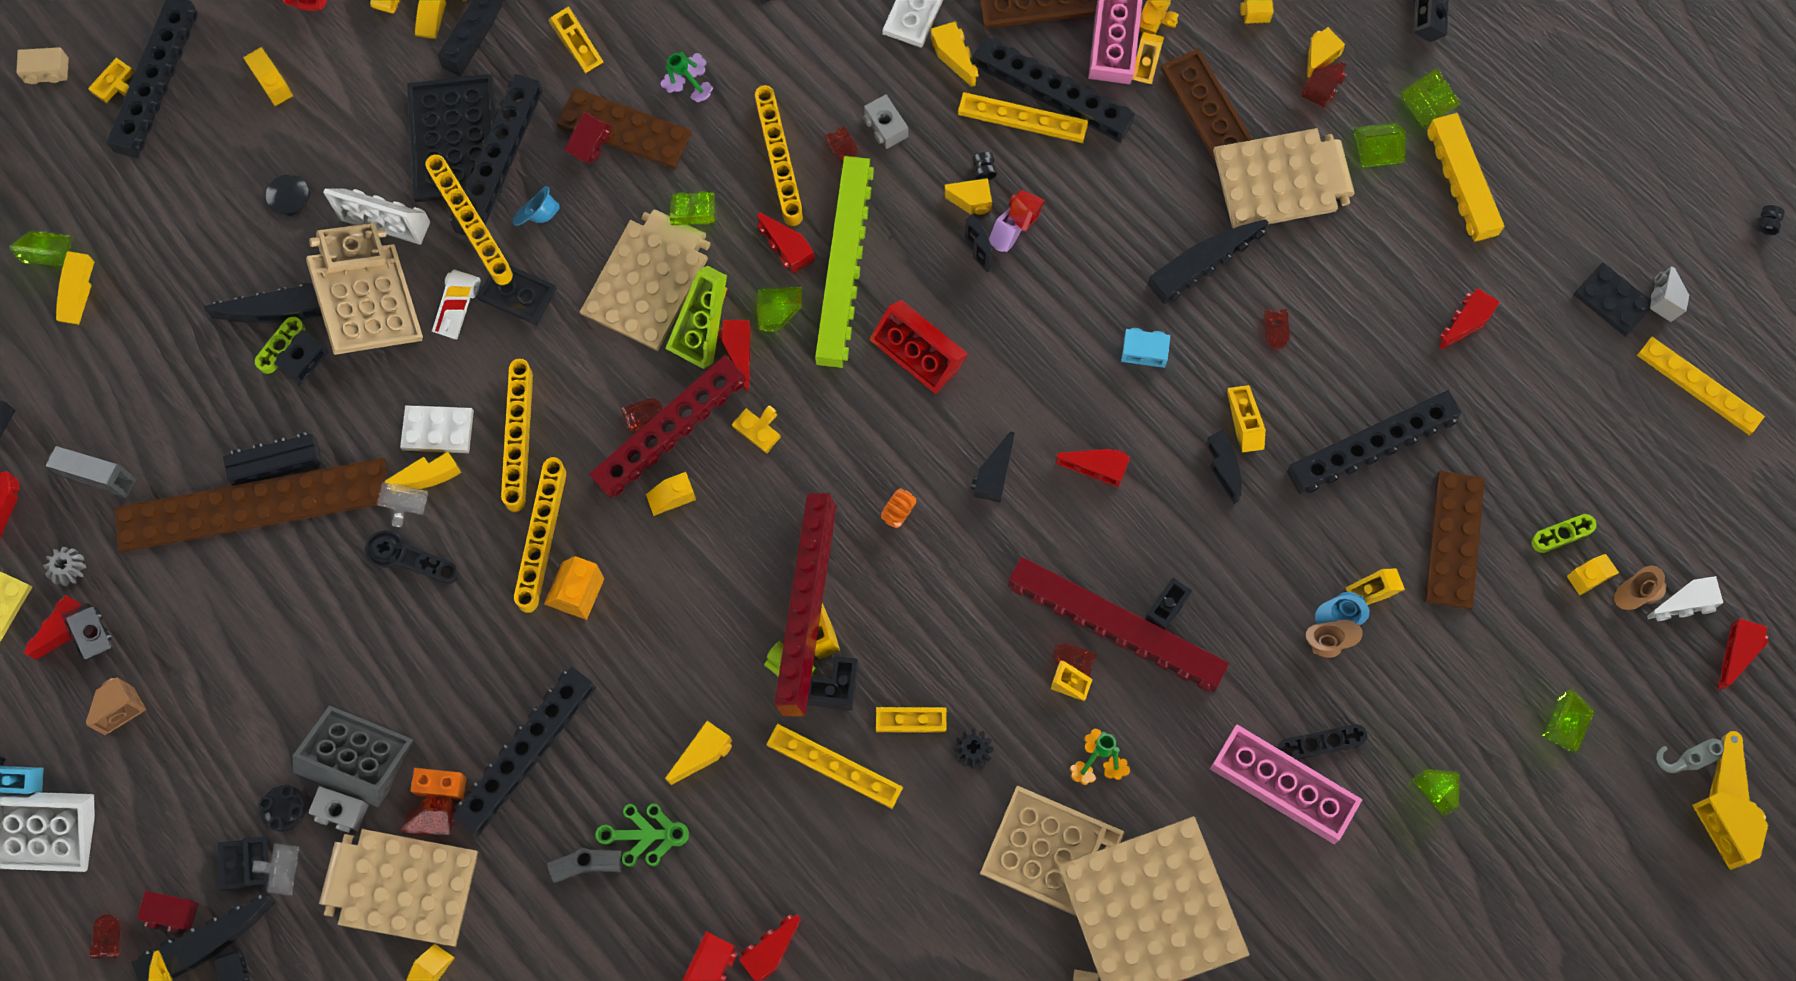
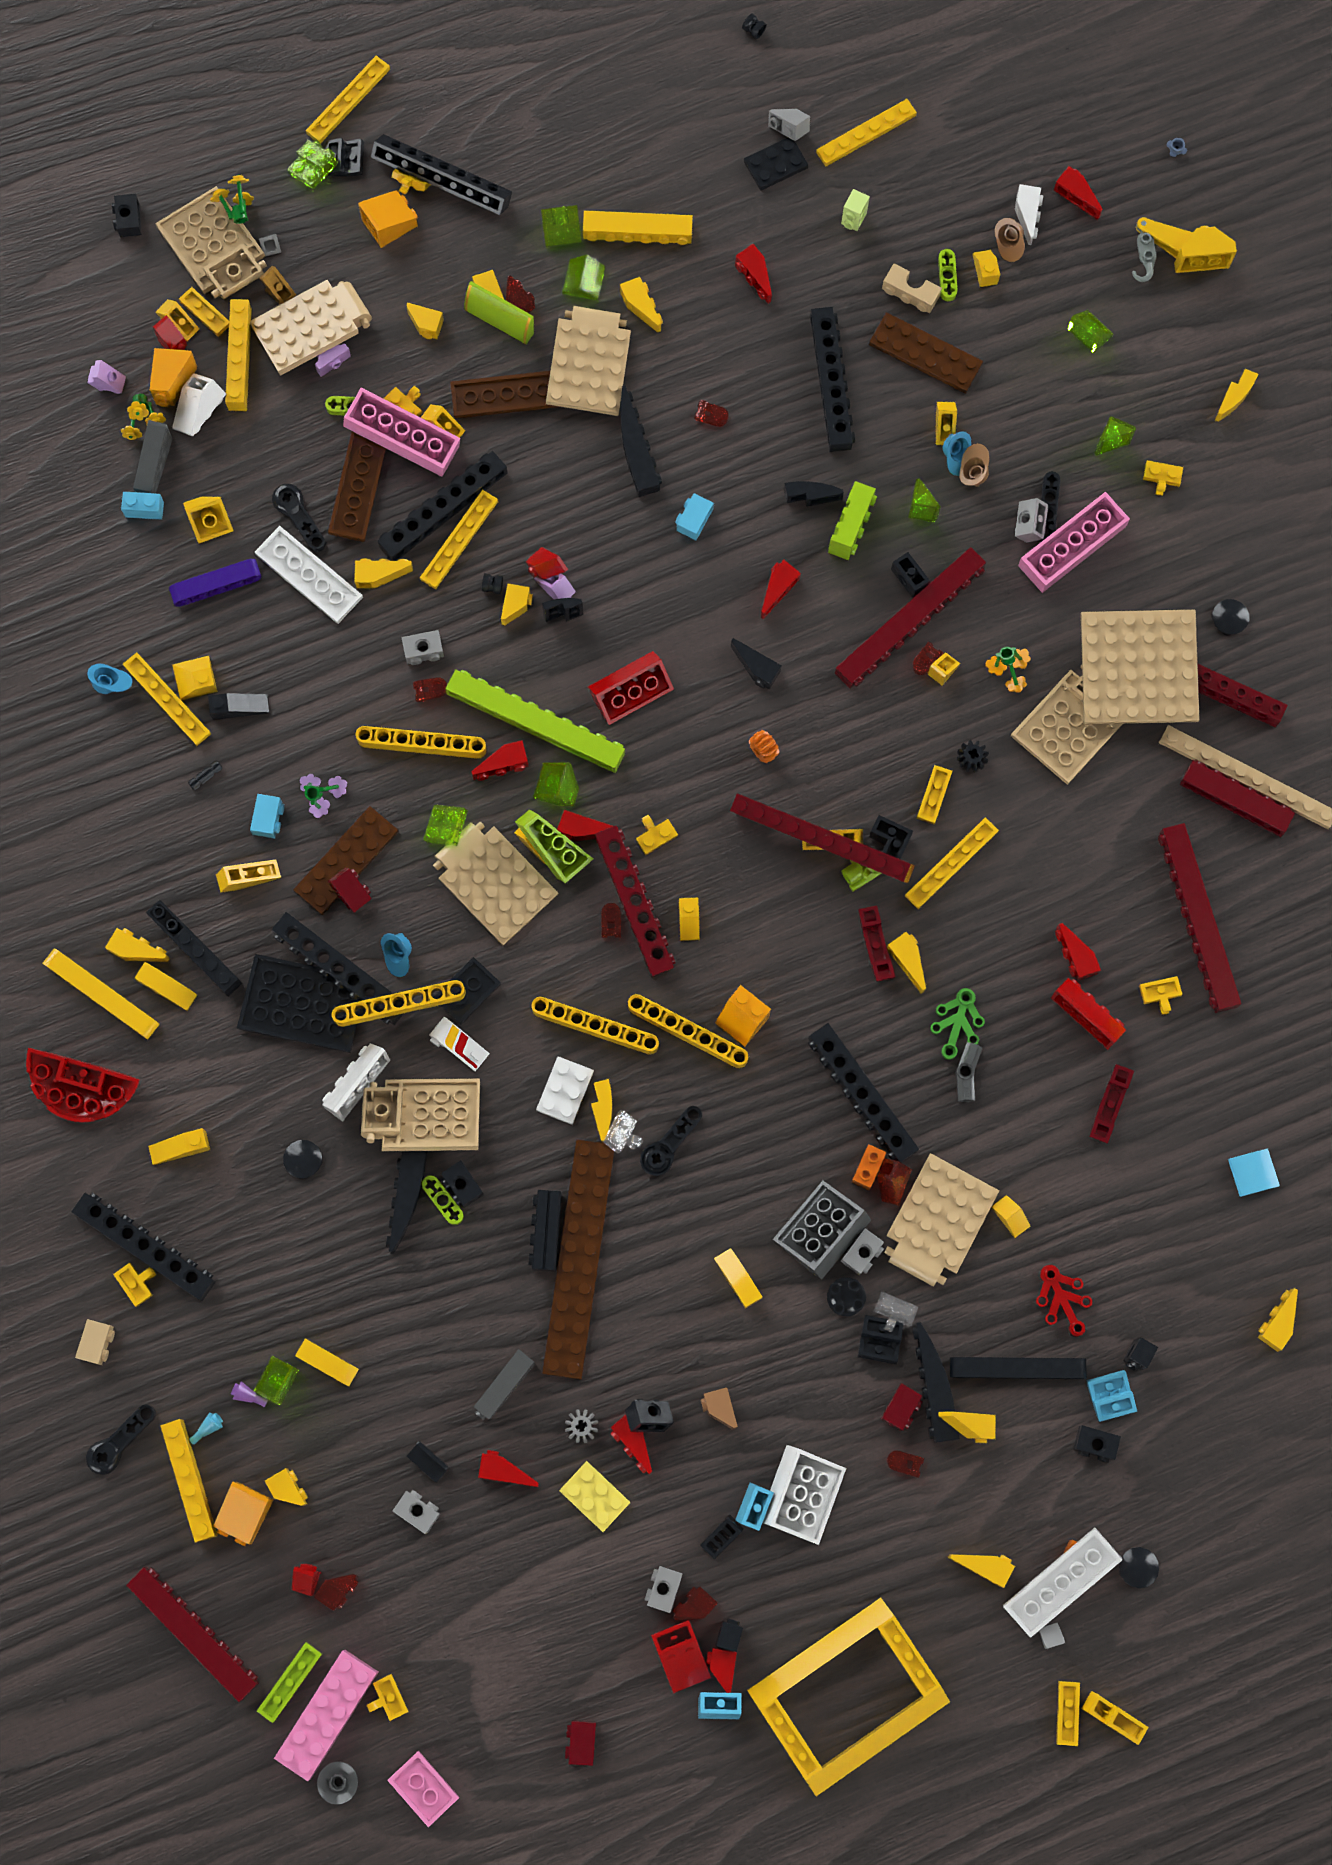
camera: 75 degrees left, 5 degrees up
(23, 220) = (244, 1393): none -> medium lavender cone
(271, 680) = (738, 1278): none -> yellow slope
(645, 35) = (266, 816): none -> medium azure brick
(710, 709) = (875, 943): none -> dark red slope
(1209, 519) = (851, 521): none -> lime wedge
(1246, 419) = (785, 464): yellow slope -> none
(1259, 587) = (923, 504): none -> clear neon green slope
(1292, 725) = (1031, 520): none -> light grey brick
(1297, 68) = (499, 313): none -> lime slope
(1380, 203) = (637, 301): none -> yellow slope
(1419, 868) = (1162, 475): none -> yellow plate
(1522, 514) = (923, 297): none -> tan arch
(1563, 928) = (1236, 394): none -> yellow slope
(1593, 399) = (855, 210): none -> yellowish green brick

